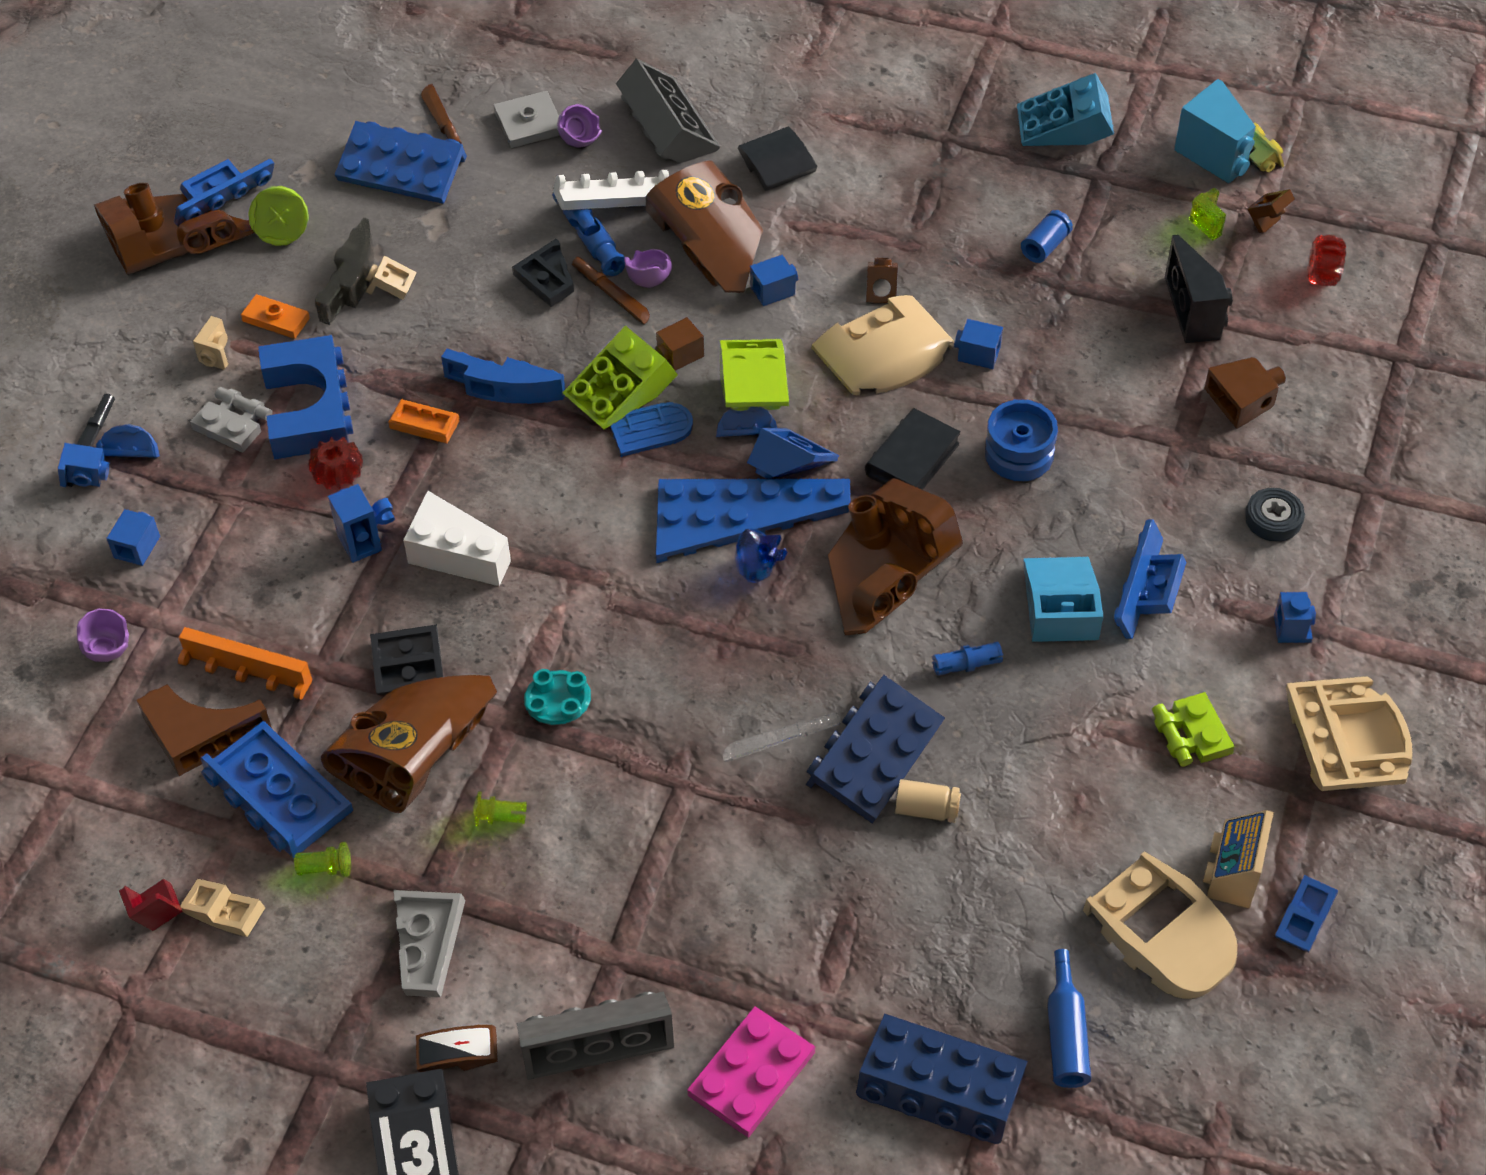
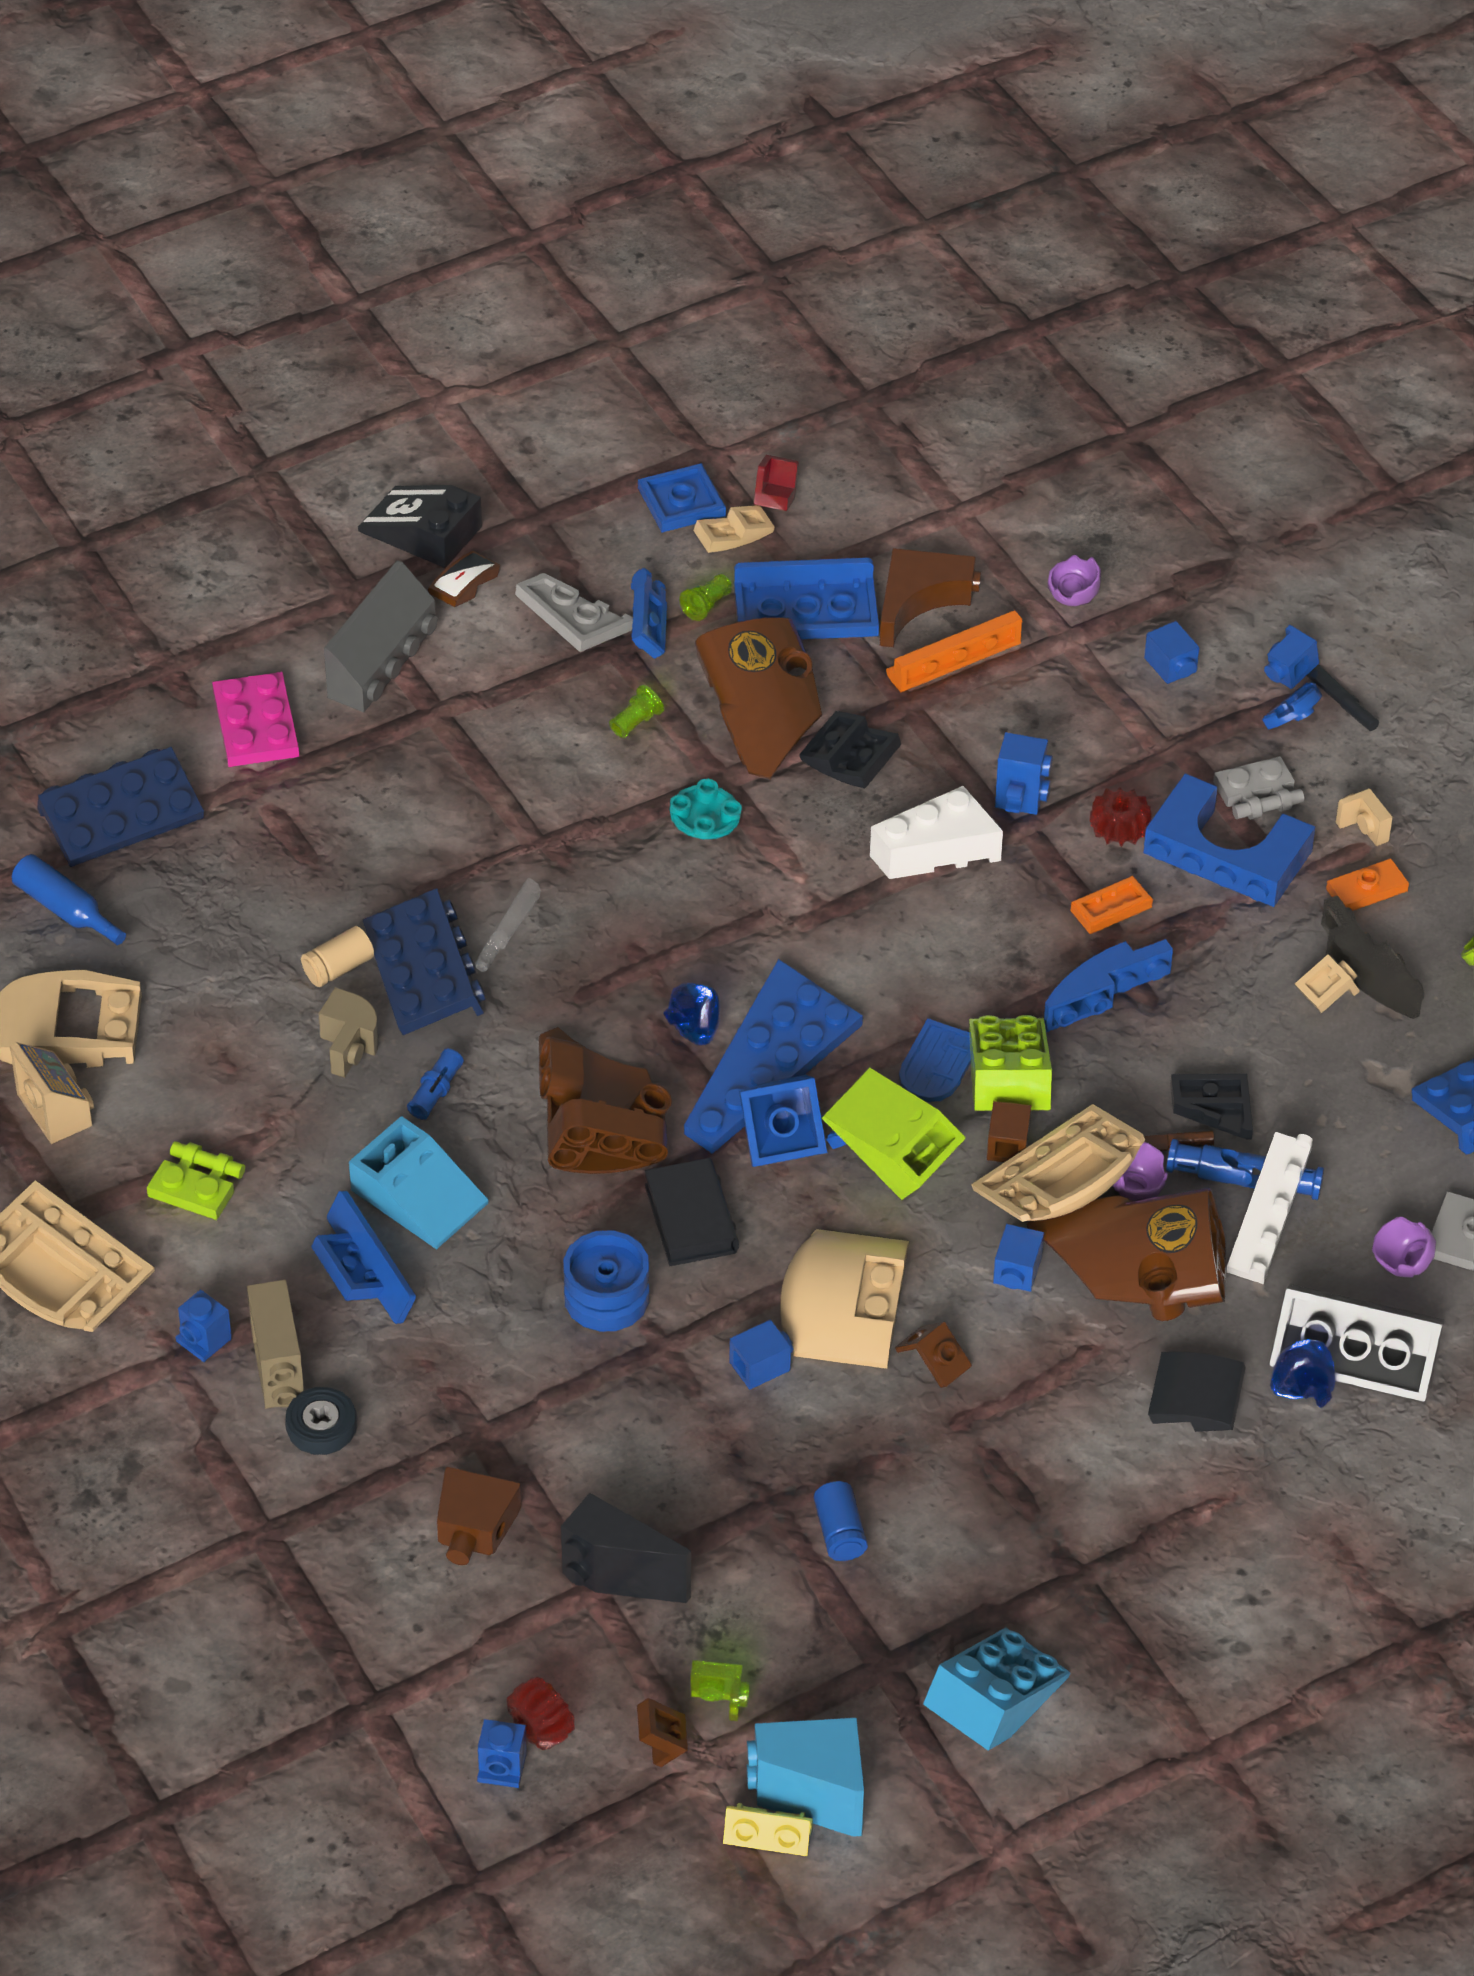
camera: 130 degrees right, 5 degrees down
(217, 968) = (681, 497): none -> blue plate
(380, 882) = (649, 613): none -> blue hinge
(694, 280) = (1063, 1167): none -> tan slope
(718, 114) = (1304, 1372): none -> clear blue piece
(978, 736) = (352, 1028): none -> dark tan brick
(1268, 555) = (275, 1343): none -> dark tan window
(1367, 258) = (501, 1753): none -> blue brick

